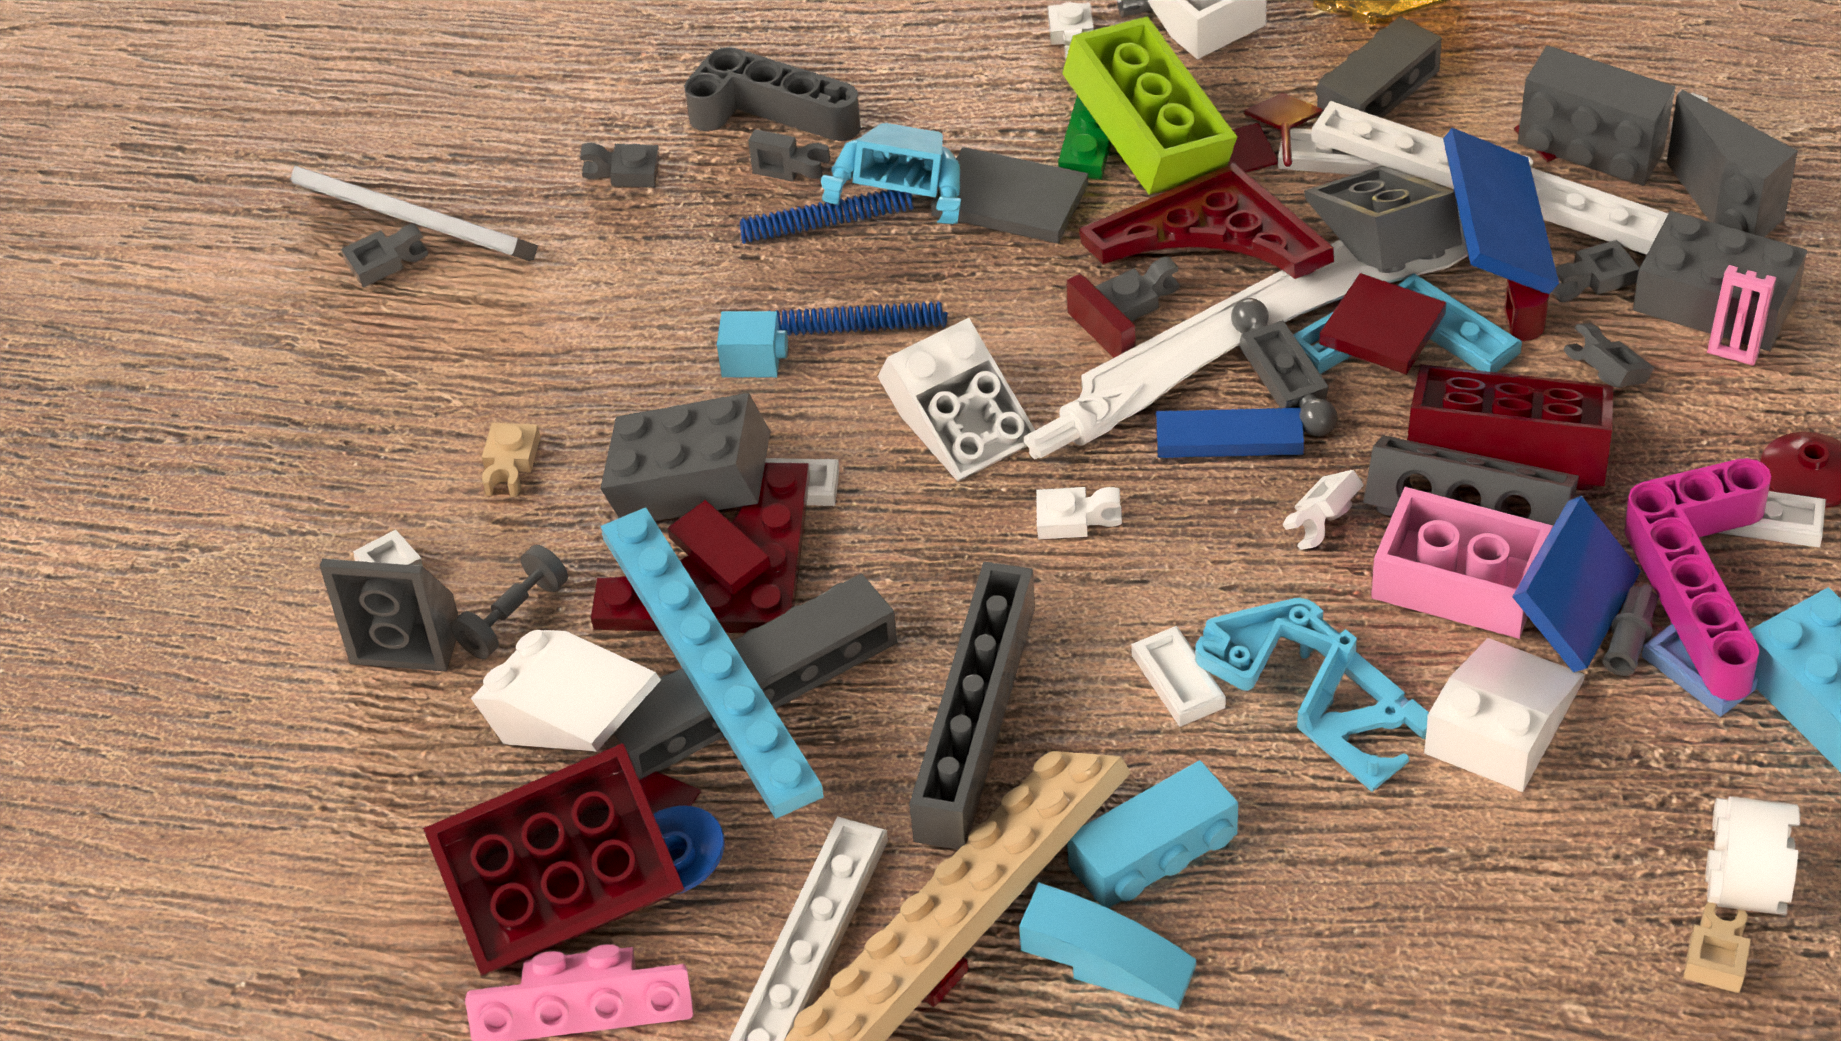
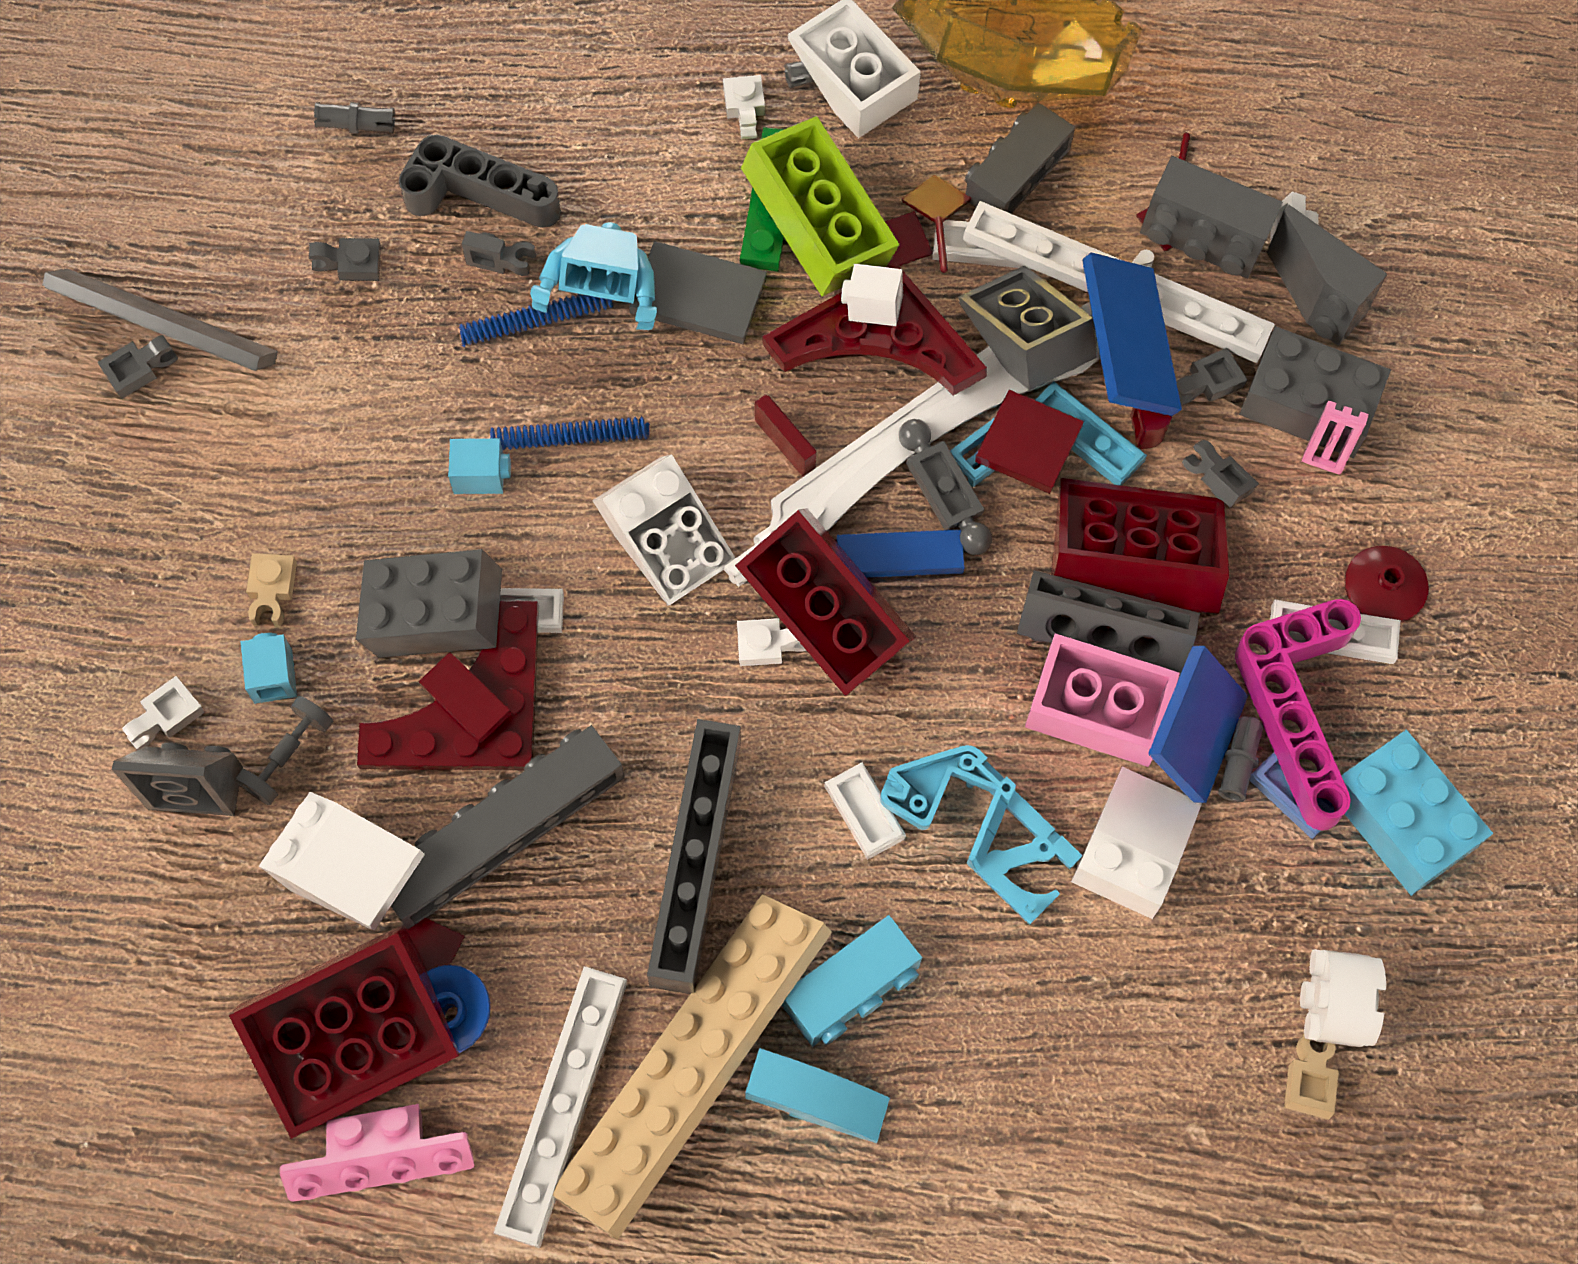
camera: 10 degrees left, 20 degrees up
(499, 525) = (268, 668): none -> medium azure brick
(641, 41) = (354, 117): none -> dark grey pin
(712, 664) = (466, 825): medium azure plate -> none
(1139, 294) = (810, 404): dark grey plate -> none
(1139, 460) = (825, 601): none -> dark red slope
(1206, 182) = (873, 294): none -> white brick
(1326, 499) = (982, 631): white plate -> none

